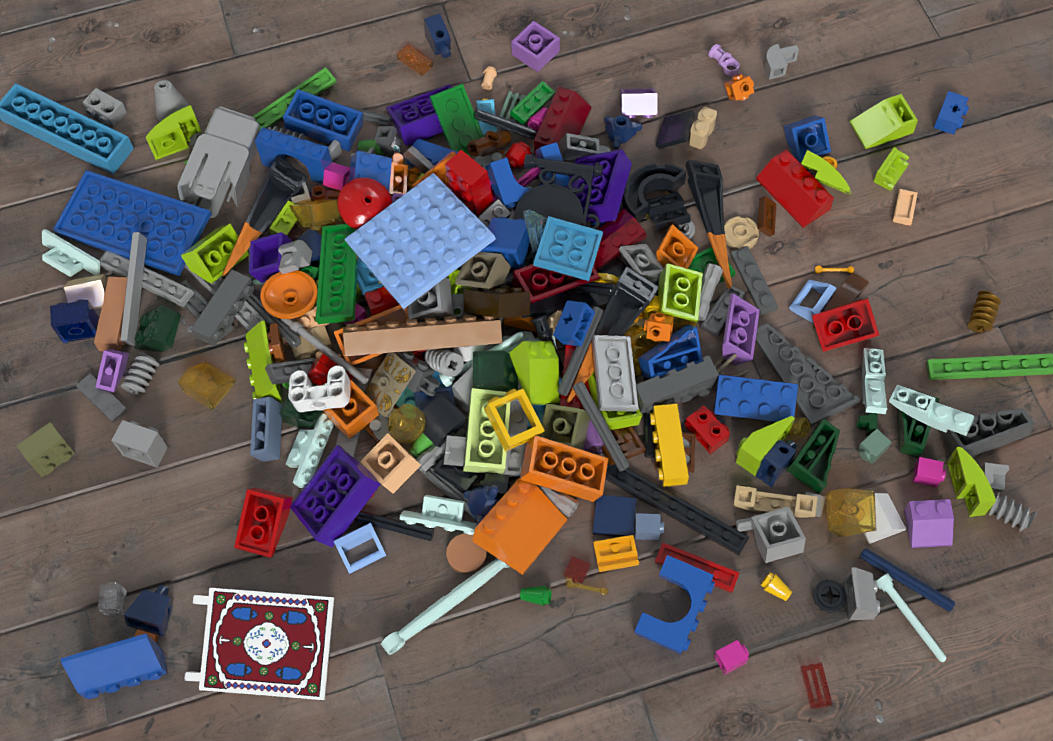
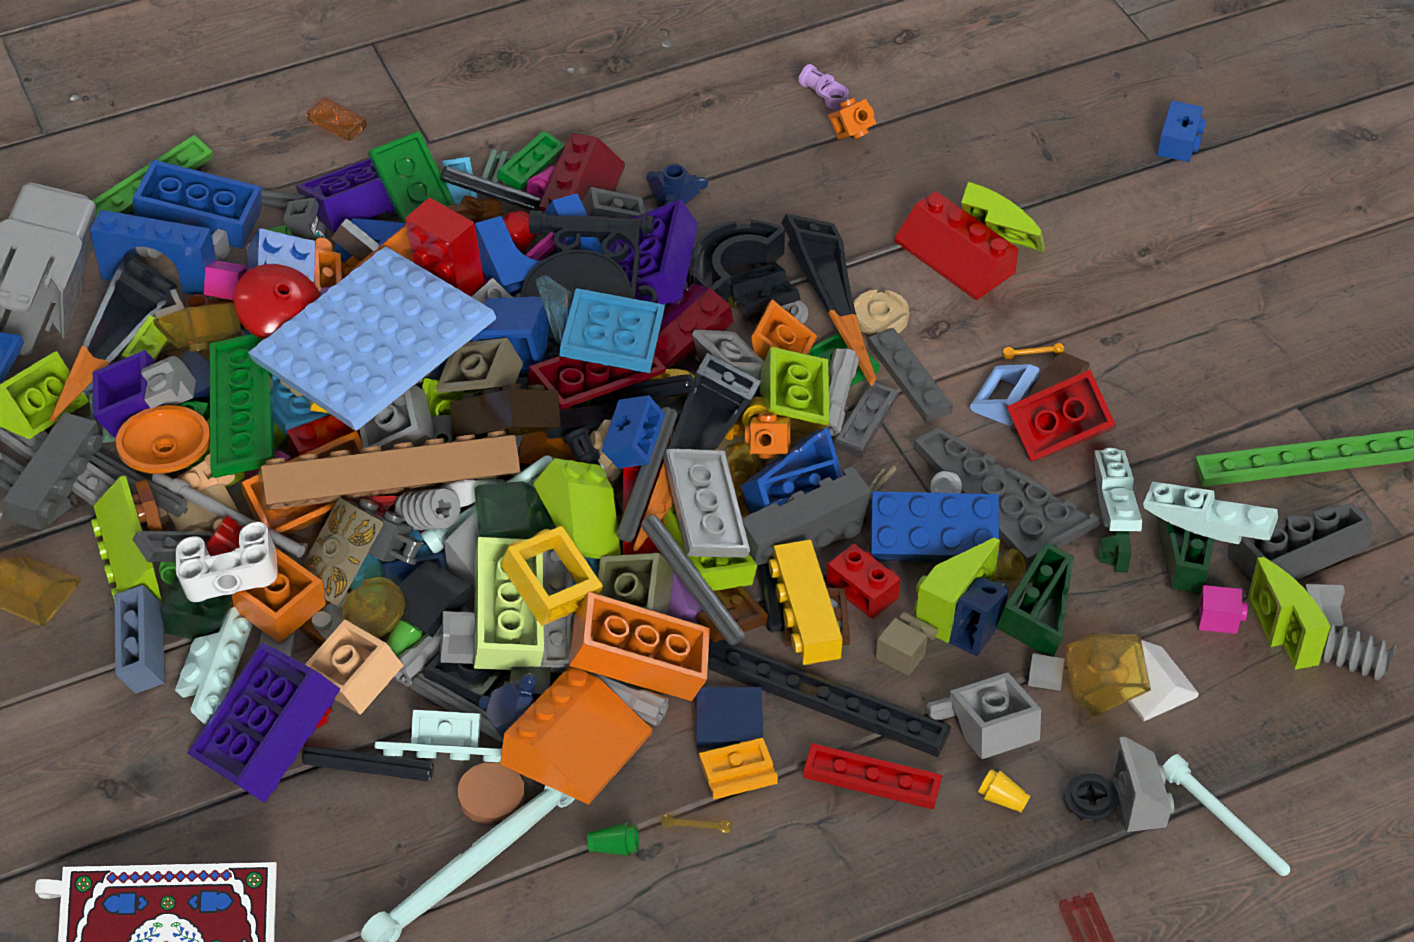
camera: 10 degrees left, 15 degrees down
(262, 521) = (143, 774): red slope -> none
(354, 539) = (305, 785): light blue tile -> none
(437, 35) = (373, 90): dark blue torso -> none
(489, 75) = (458, 130): light nougat pin -> none
(535, 46) = (527, 85): medium lavender brick -> none
(577, 569) = (677, 799): clear red tile -> none
(638, 102) = (699, 149): slope -> none
(648, 526) = (786, 724): sand blue brick -> none
(675, 129) = (760, 179): black tile -> none
(696, 584) = (847, 873): blue arch -> none
(702, 127) = (802, 175): tan brick -> none
(726, 477) = (904, 642): none -> dark tan brick
(731, 657) = (945, 898): dark pink brick -> none
(740, 330) = (897, 436): medium lavender slope -> none
(763, 502) = (945, 674): tan slope -> none
(766, 216) = (918, 286): reddish brown plate -> none
(766, 366) = (946, 483): none -> white tile
(777, 60) = (907, 80): light grey brick -> none
(807, 135) = (972, 165): blue slope -> none
(873, 446) = (1130, 581): sand green brick -> none
(885, 122) = (1082, 148): lime slope -> none
(891, 169) = (1101, 211): lime hinge -> none
(905, 207) = (1129, 260): light nougat tile -> none
(907, 580) = (1212, 763): dark blue axle -> none
(930, 523) = (1234, 678): medium lavender slope -> none
(984, 312) = (1272, 386): pearl gold piece -> none

